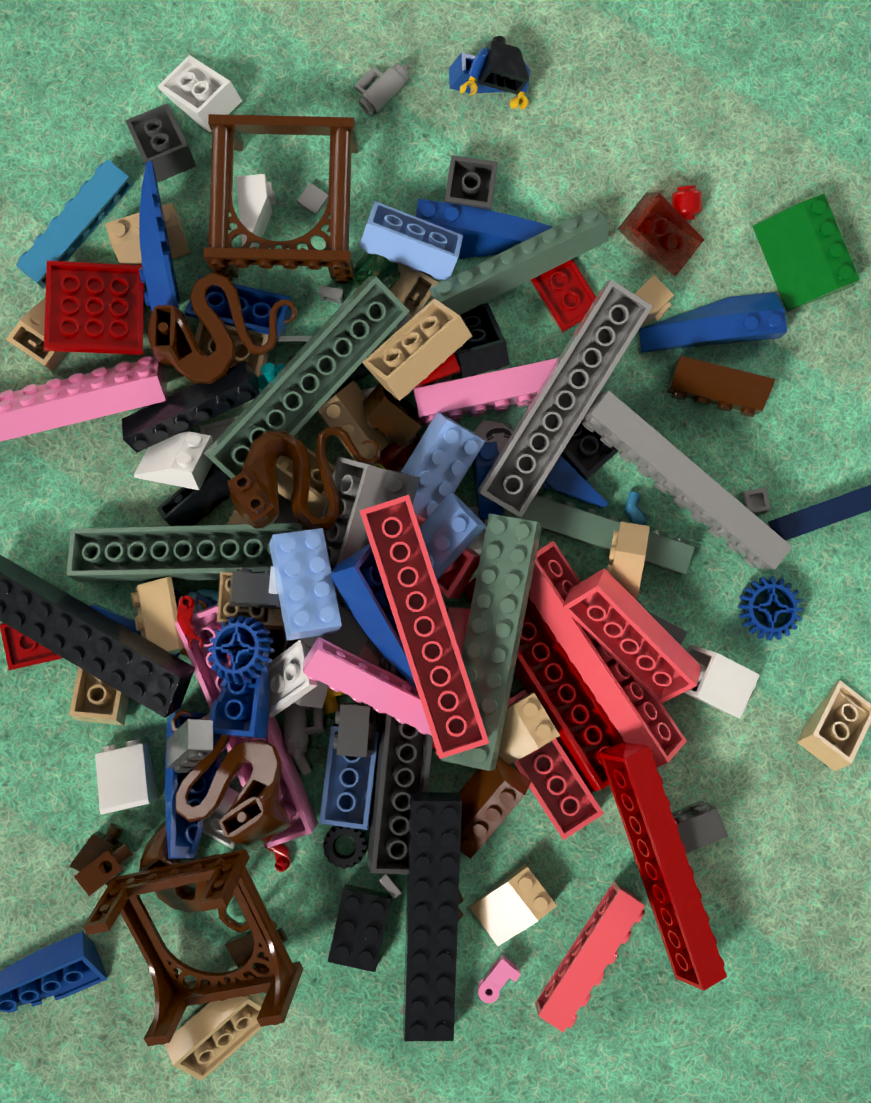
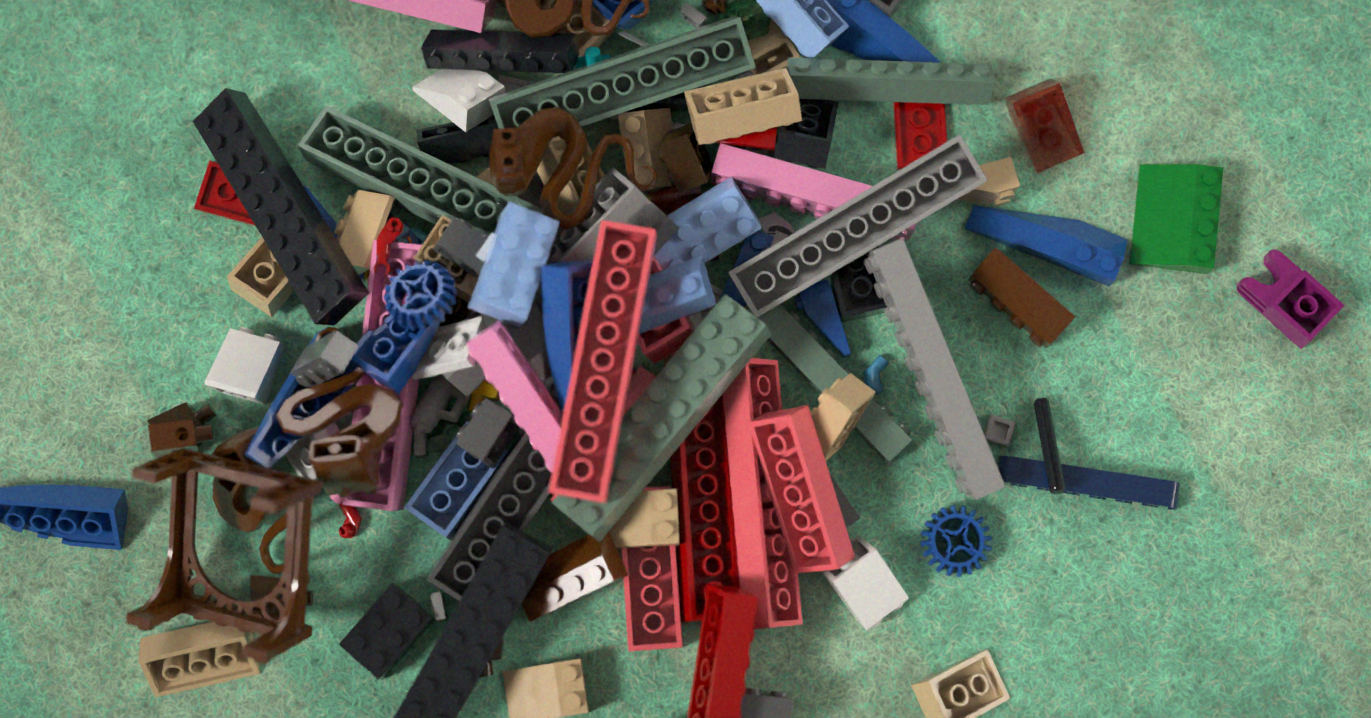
camera: 30 degrees right, 5 degrees down
(342, 860) = (404, 535): black tyre -> none
(687, 201) = (1086, 107): red head -> none
(805, 493) = (1049, 446): none -> black axle

